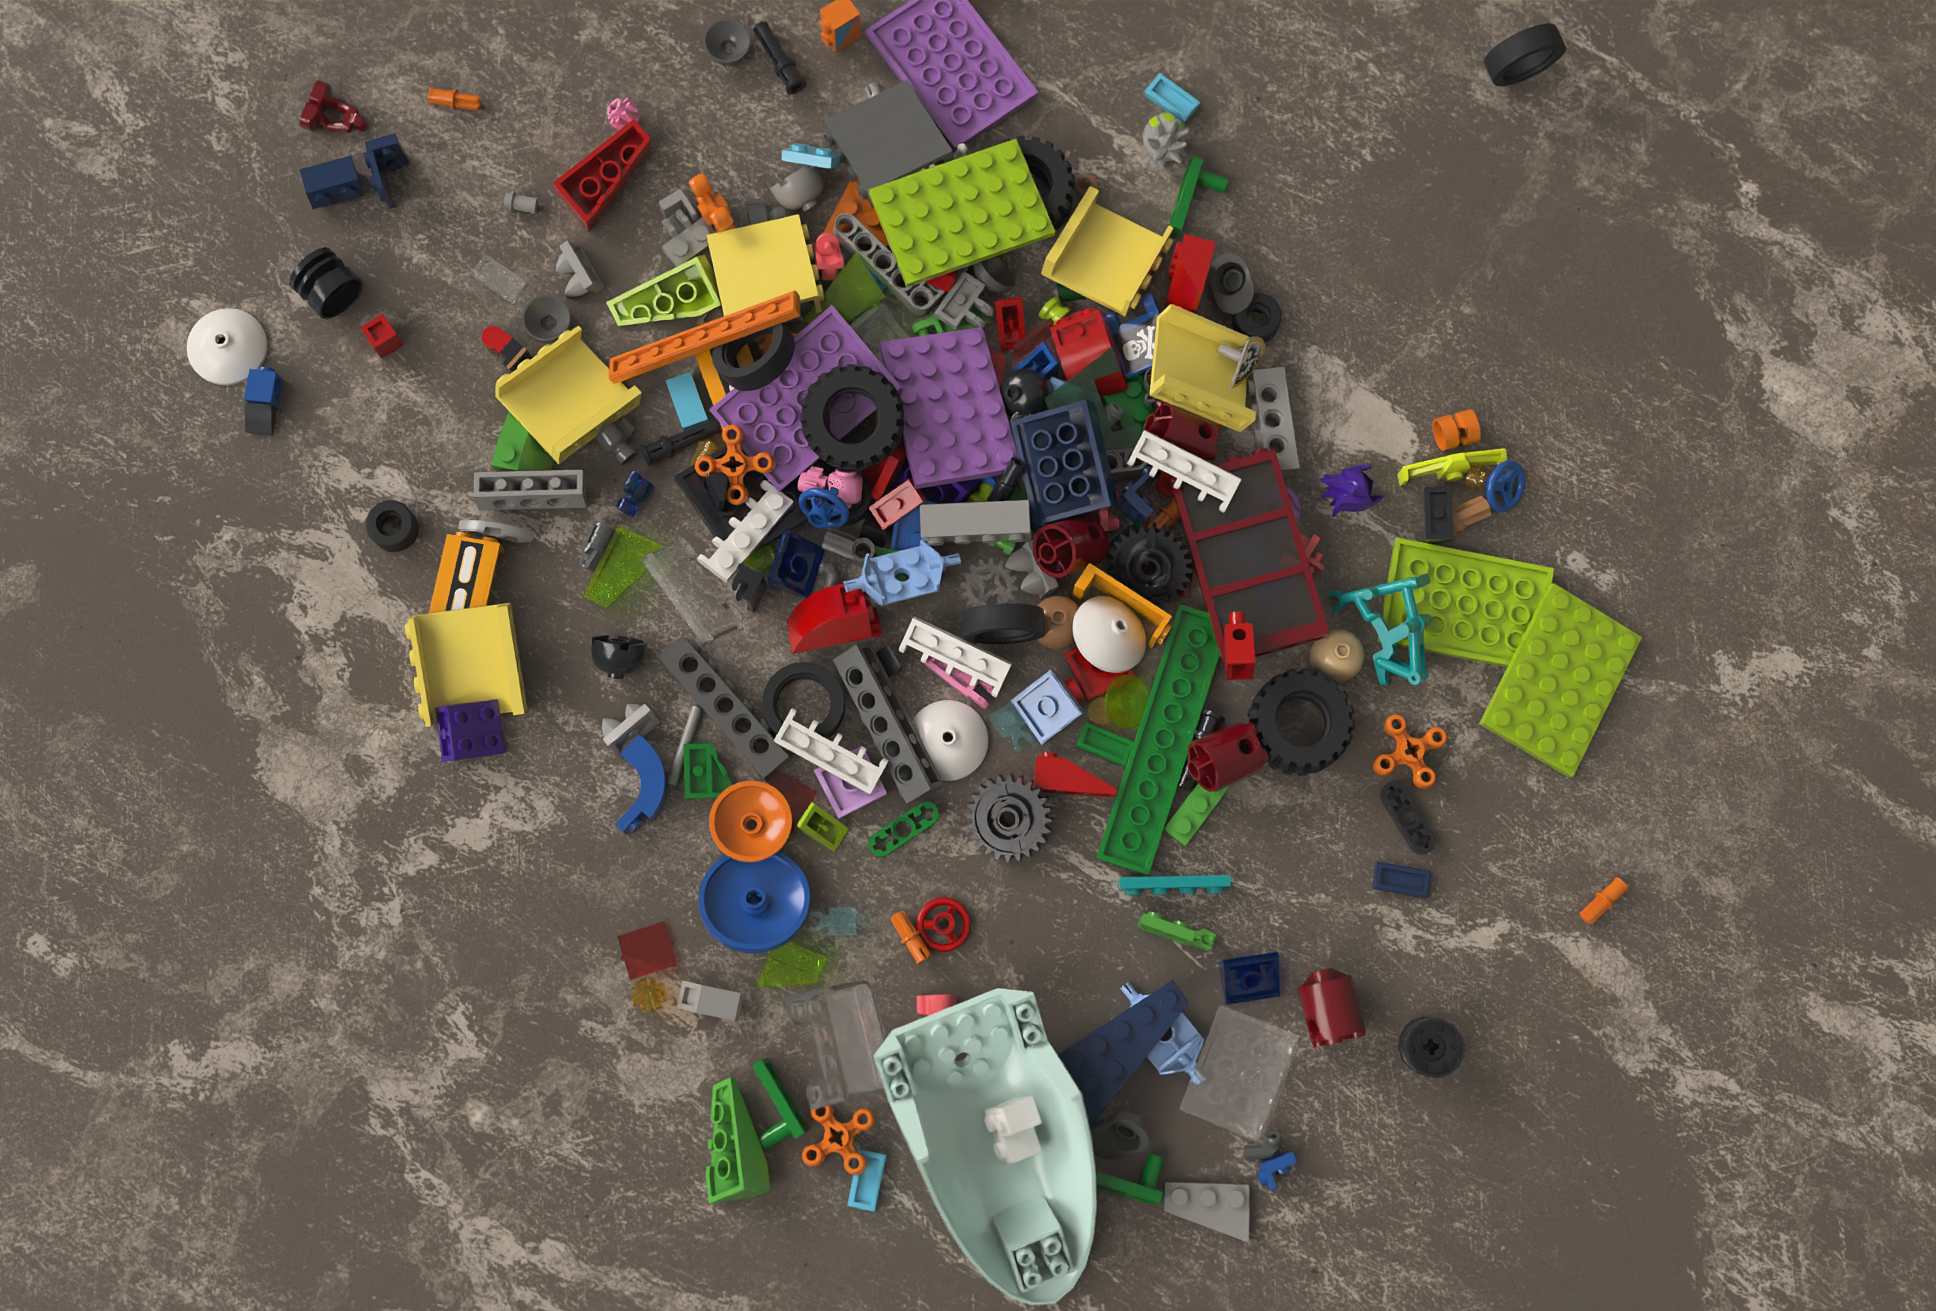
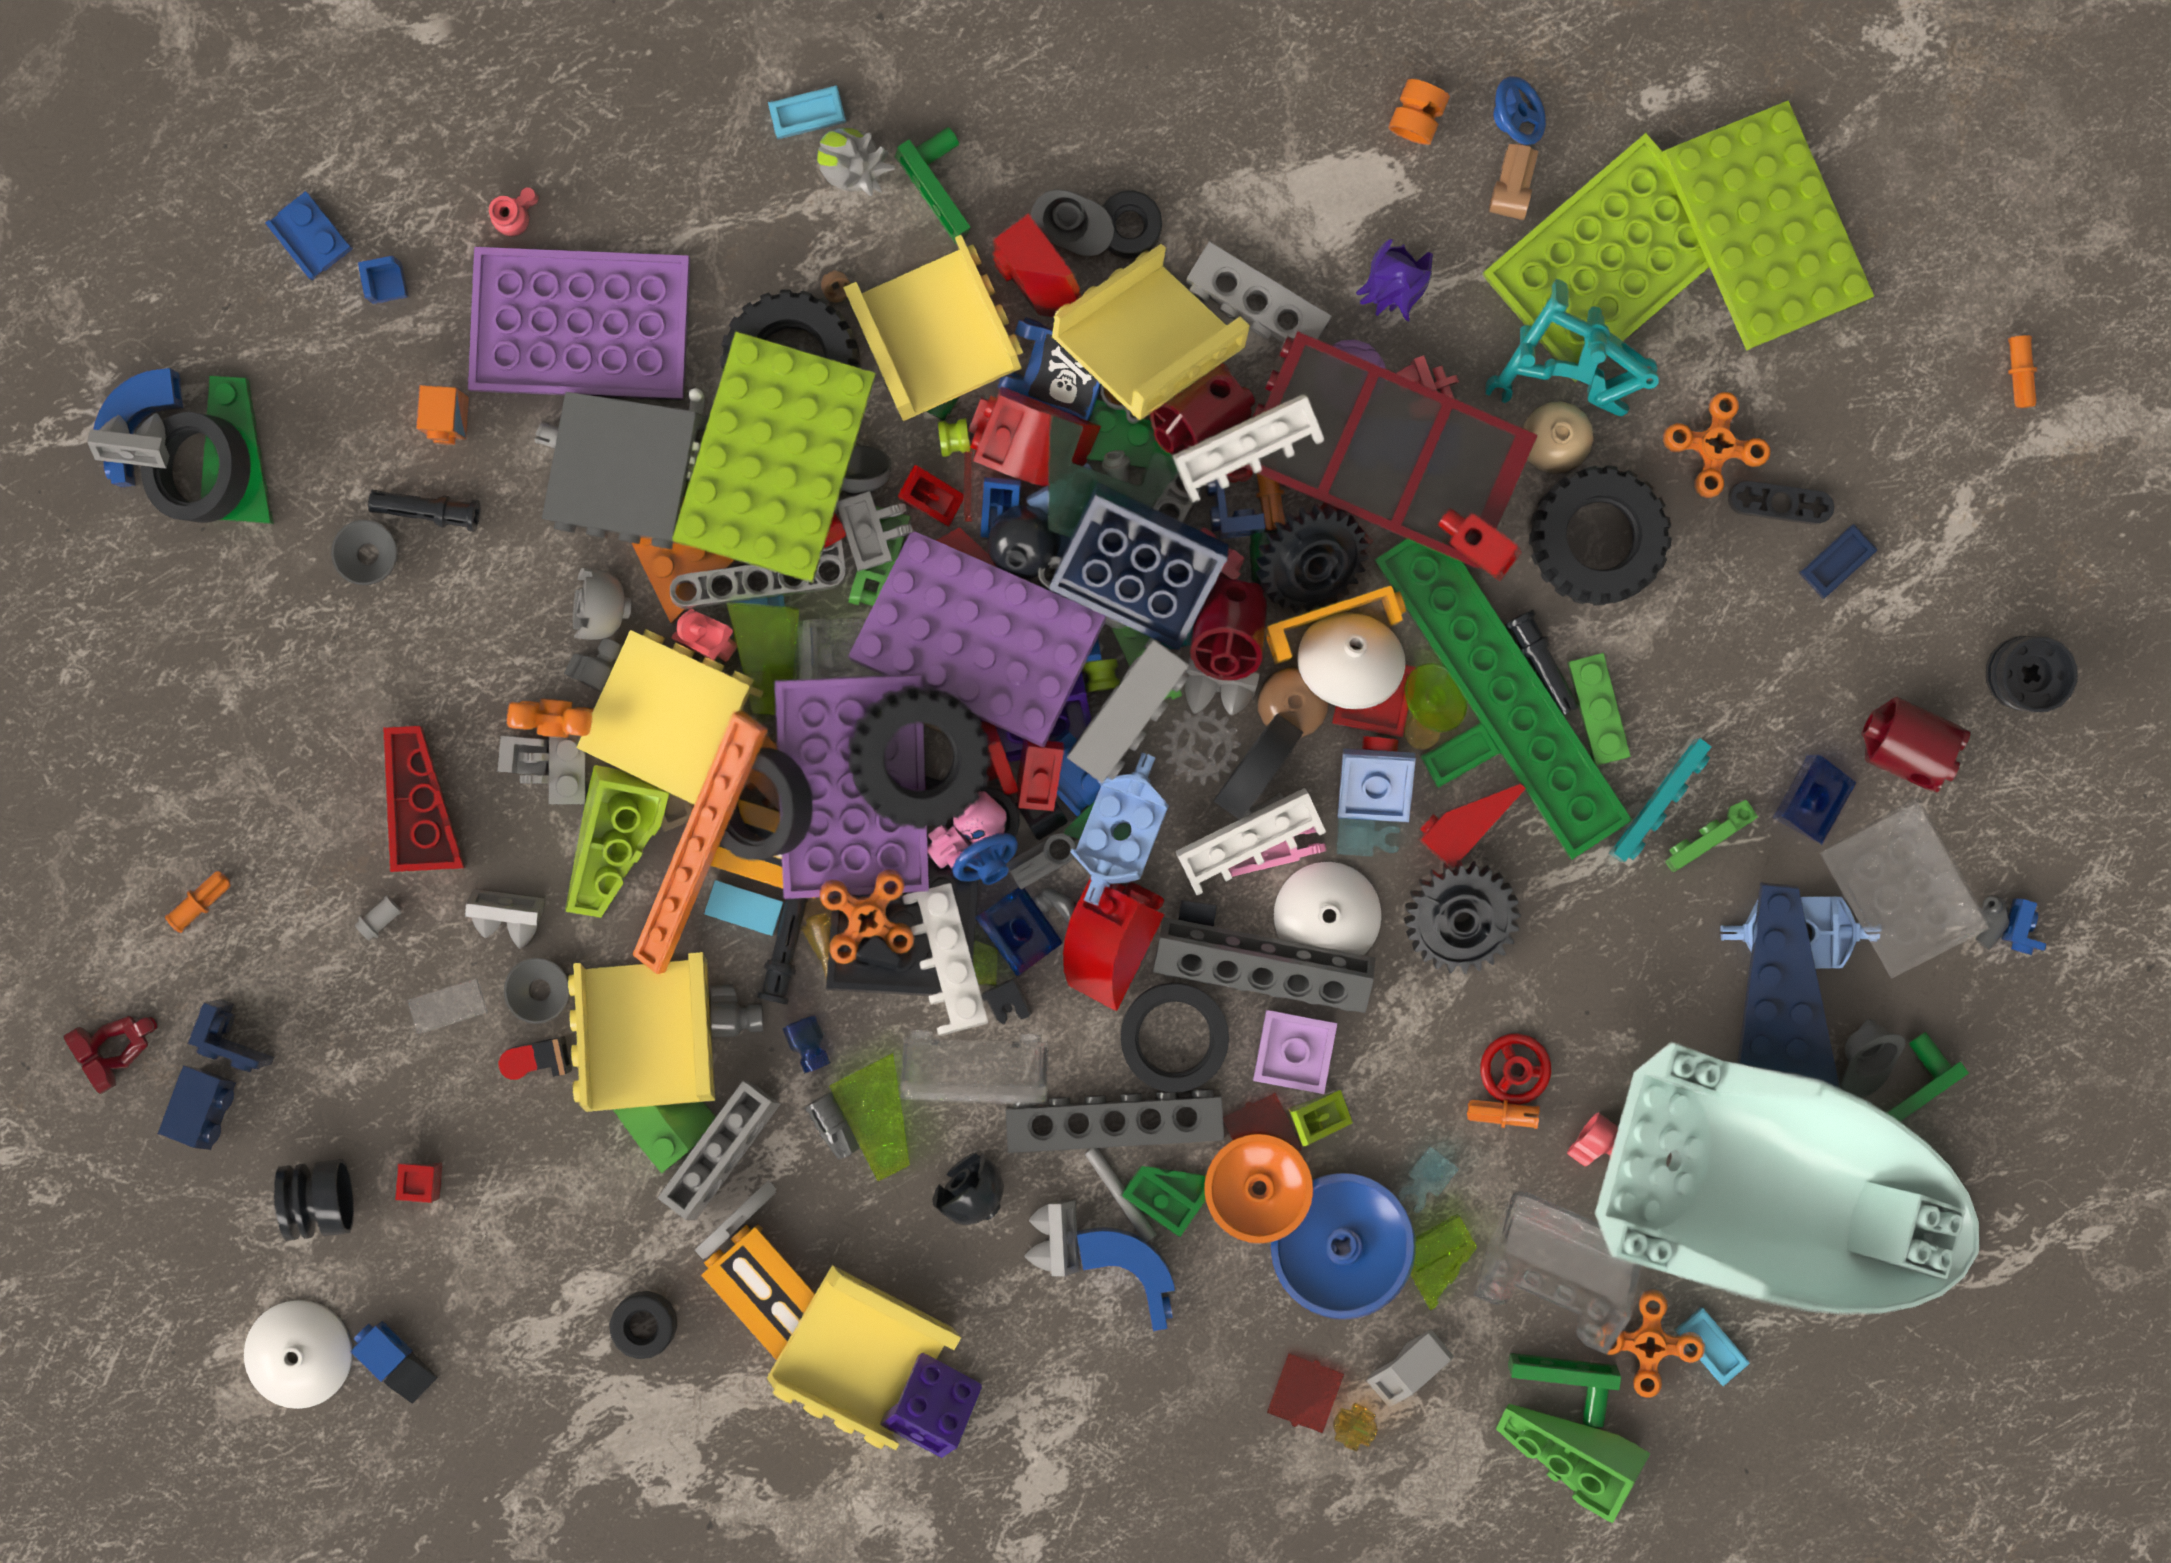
camera: 35 degrees left, 10 degrees up
(622, 112) = (361, 730): bright pink gear -> none
(811, 156) = (575, 566): medium azure wing -> none
(829, 754) = (1254, 1054): white hinge -> none
(924, 823) = (1375, 1060): green beam -> none
(1007, 480) = (1109, 643): black axle -> none
(1013, 1129) = (1781, 1161): white brick -> none
(1211, 1205) = (2007, 1020): light grey wing -> none
(1226, 756) = (1578, 645): dark red cylinder -> none
(1247, 358) = (1165, 275): shield -> none
(1438, 514) = (1496, 209): black panel -> none
(1451, 466) = (1456, 149): neon yellow plate -> none
(1475, 477) = (1484, 134): clear yellow plate -> none

